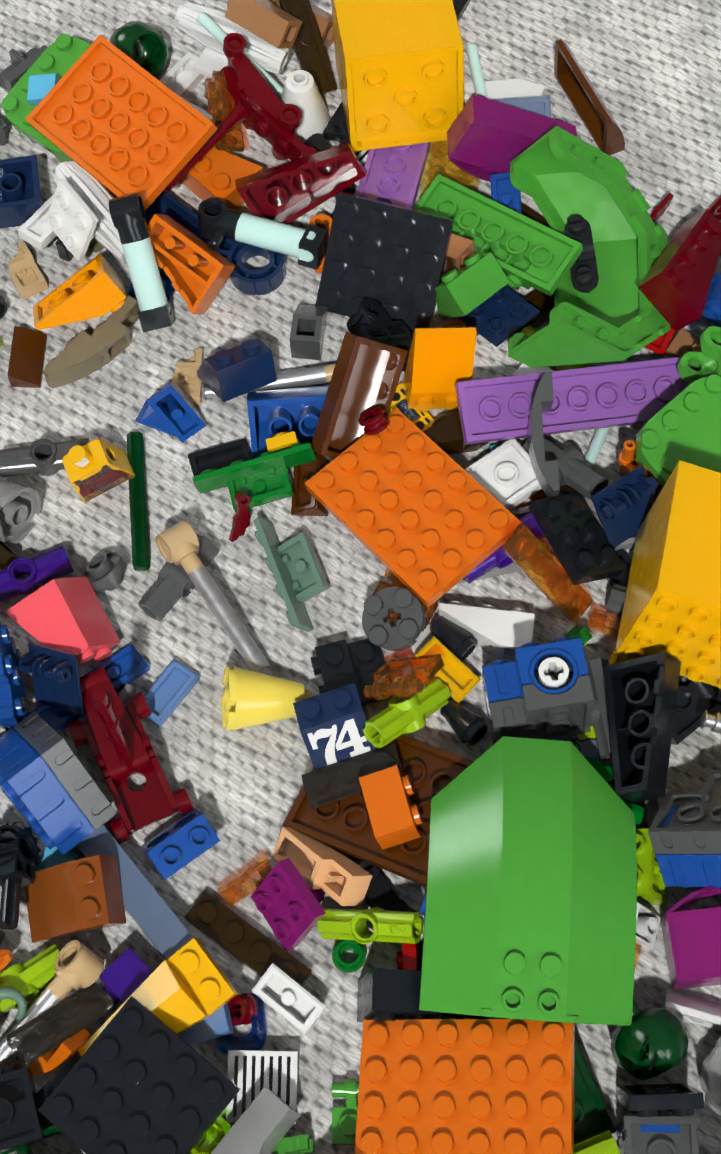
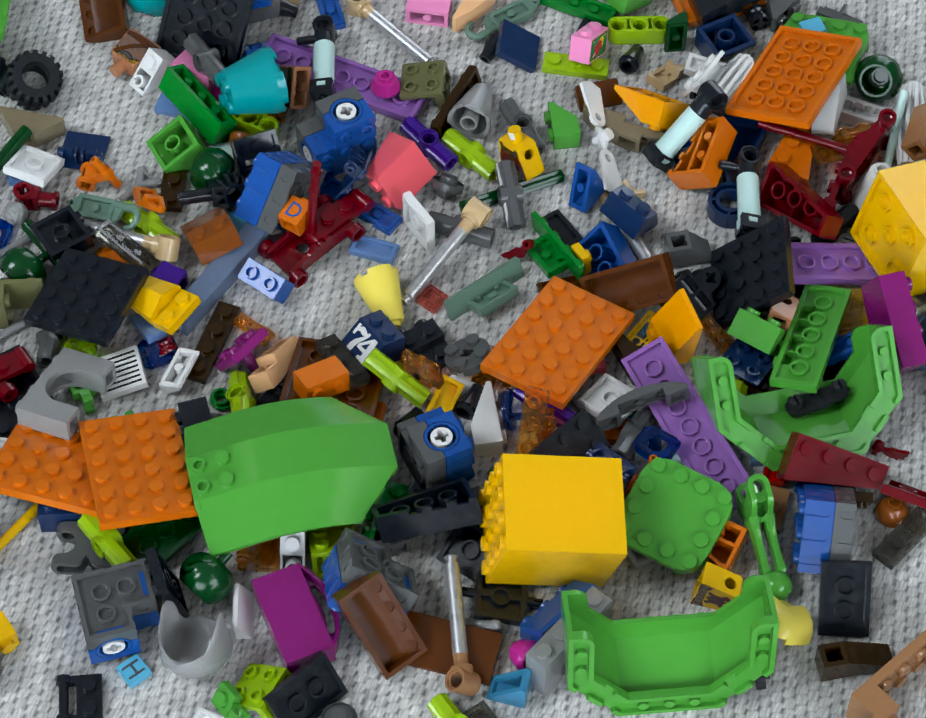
camera: 70 degrees right, 10 degrees down
(62, 410) = (564, 127): none -> bright green slope
(63, 529) = (470, 154): none -> lime piece
(105, 767) = (294, 215): none -> orange brick
(109, 366) = (593, 101): none -> white piece
(154, 499) = (510, 195): none -> dark grey piece
(156, 620) = (418, 221): none -> white tile
(273, 642) = (431, 299): none -> clear red tile
(374, 420) = (615, 299): dark red bush -> none
(503, 596) = (509, 419): none -> clear blue piece
(595, 456) = (654, 436): none -> clear blue piece

